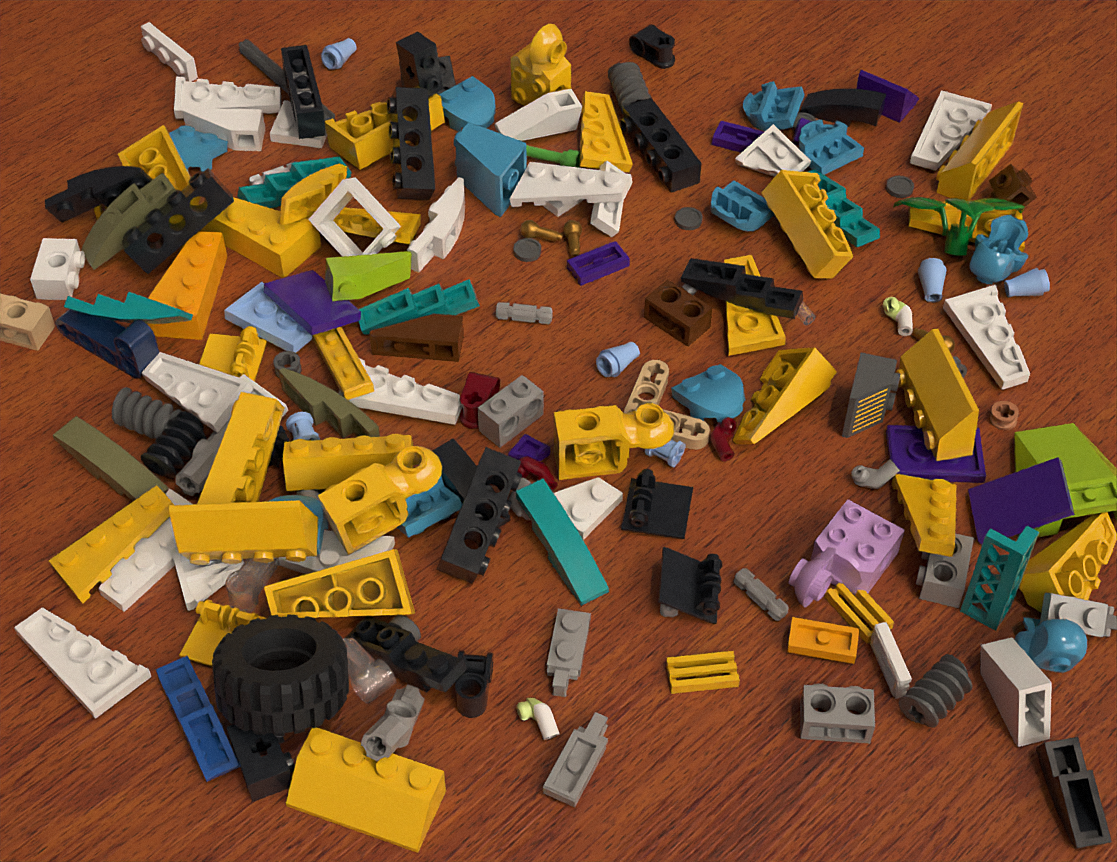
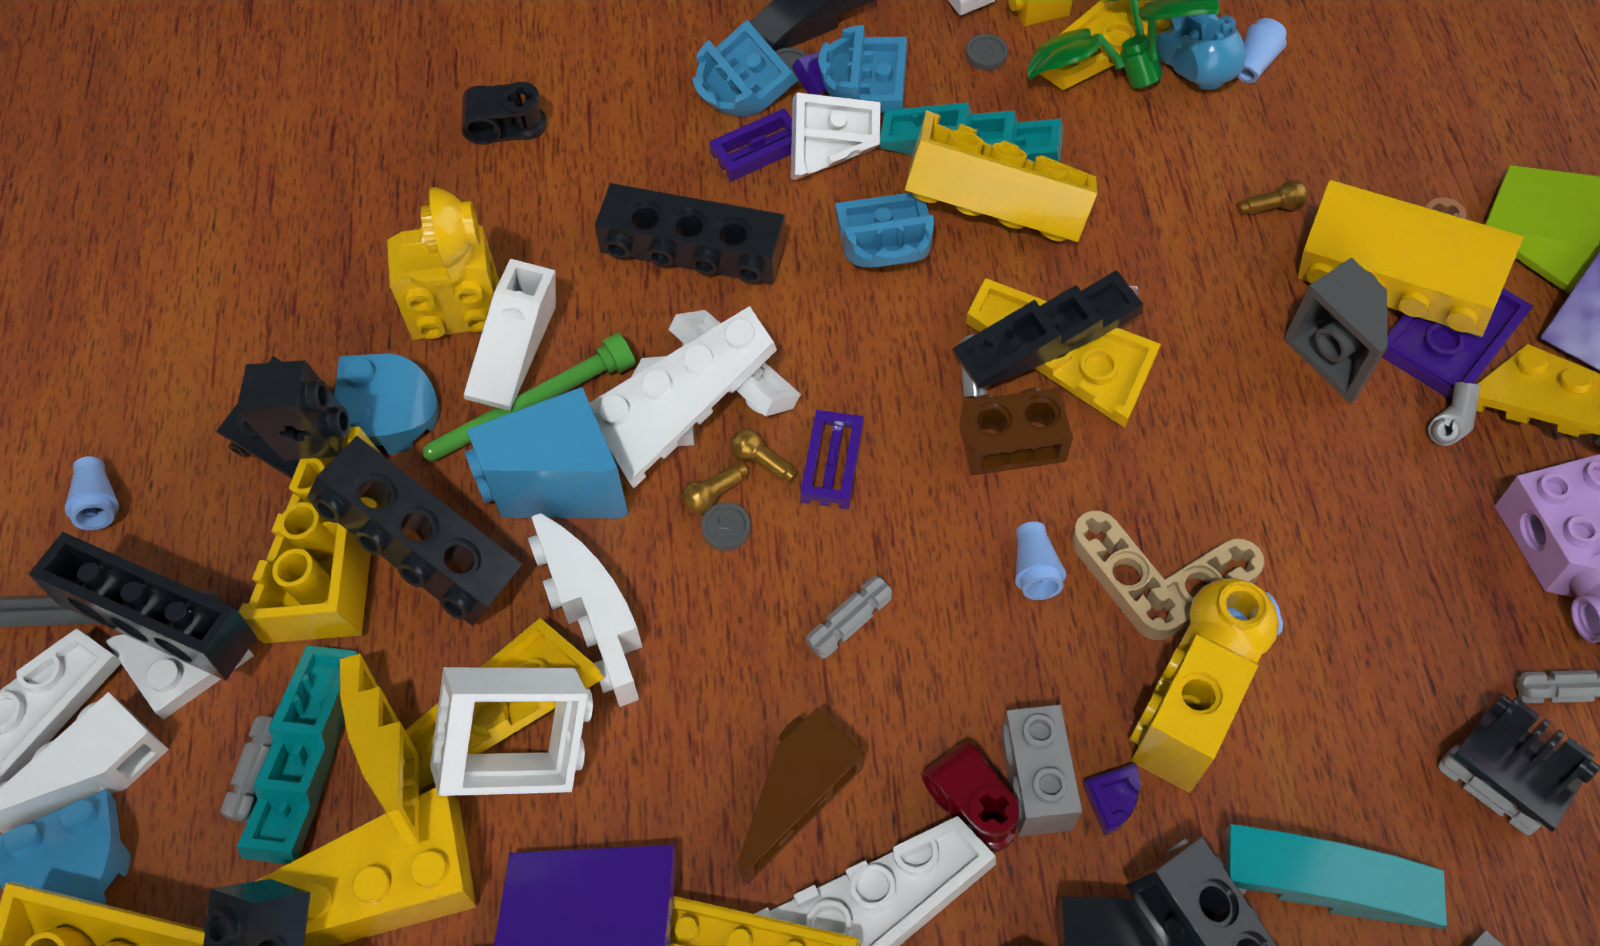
camera: 50 degrees left, 10 degrees up
(365, 274) = (601, 803): lime slope -> none
(408, 306) = (721, 756): teal slope -> none
(538, 469) = (1163, 811): dark red arm -> none
(589, 503) = (1272, 789): white wing -> none
(601, 134) = (608, 287): yellow wing -> none
(628, 84) = (553, 195): dark grey piece -> none
(657, 507) = (1339, 705): black hinge -> none
(688, 218) = (841, 299): dark grey piece -> none
(712, 394) = (1188, 495): dark azure slope -> none
(721, 437) = (1259, 529): dark red arm -> none
(789, 385) = (1252, 416): yellow wedge -> none
(900, 313) = (1205, 200): arm -> none
(932, 278) = (1177, 129): light blue cone -> none
(986, 330) = (1291, 138): white wing -> none

